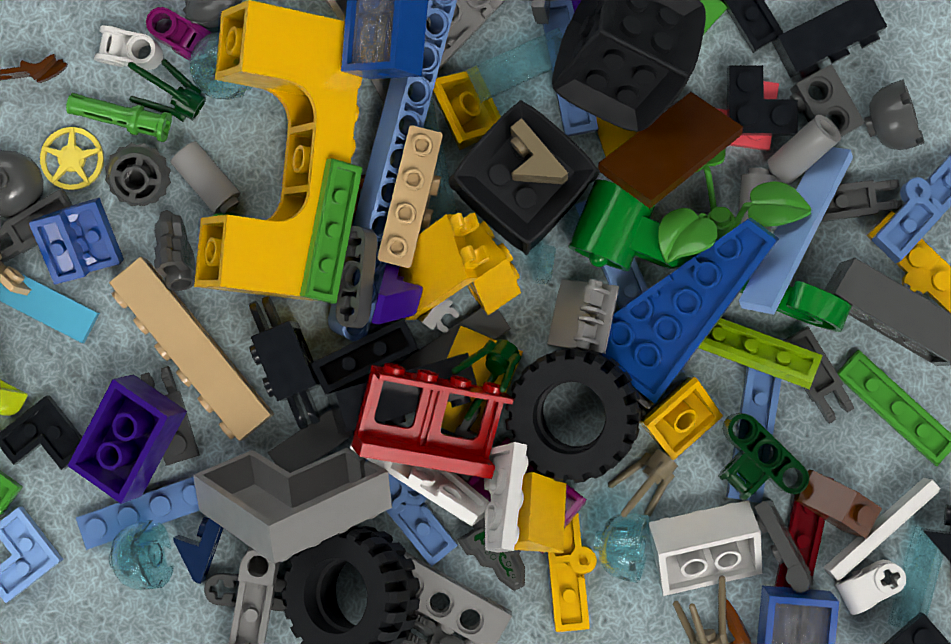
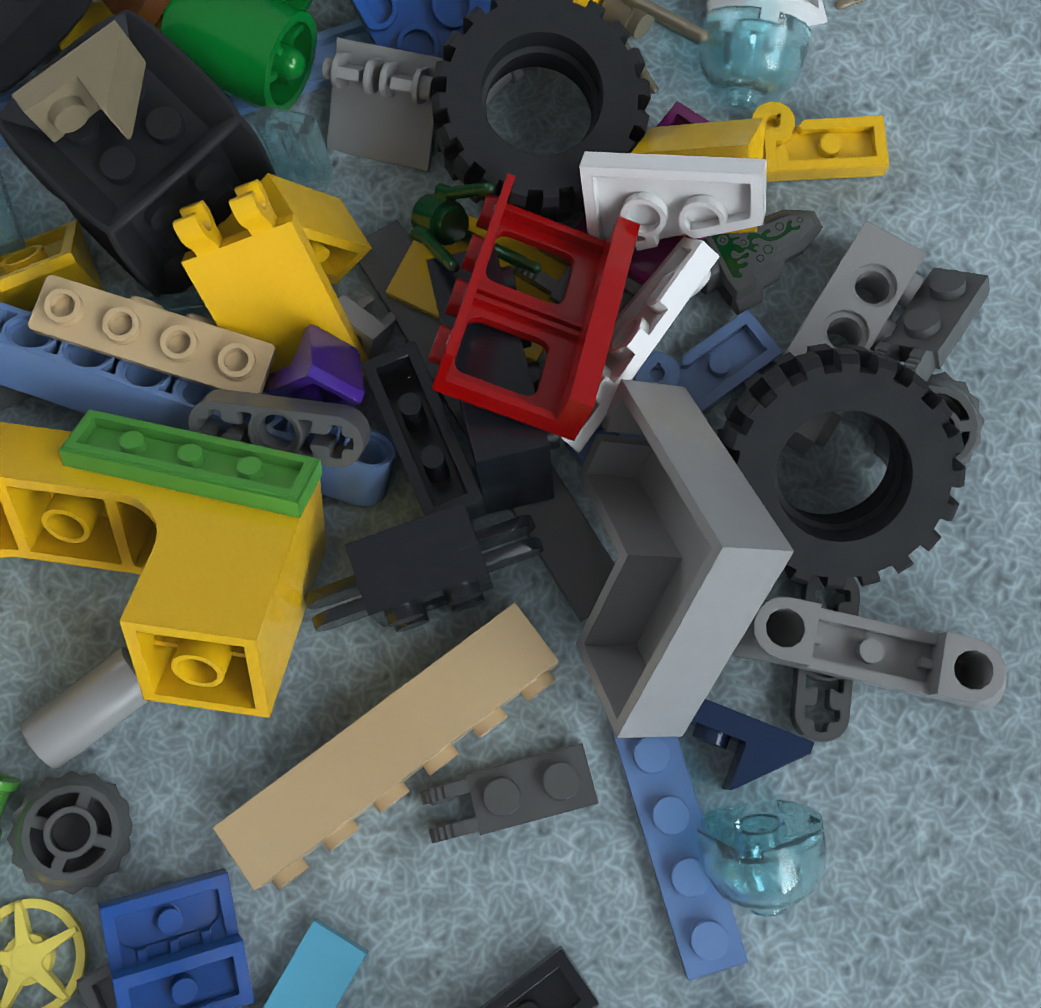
camera: 85 degrees left, 10 degrees down
(127, 438) = (545, 869): dark purple brick -> none
(173, 252) = (216, 767): dark grey rock -> none

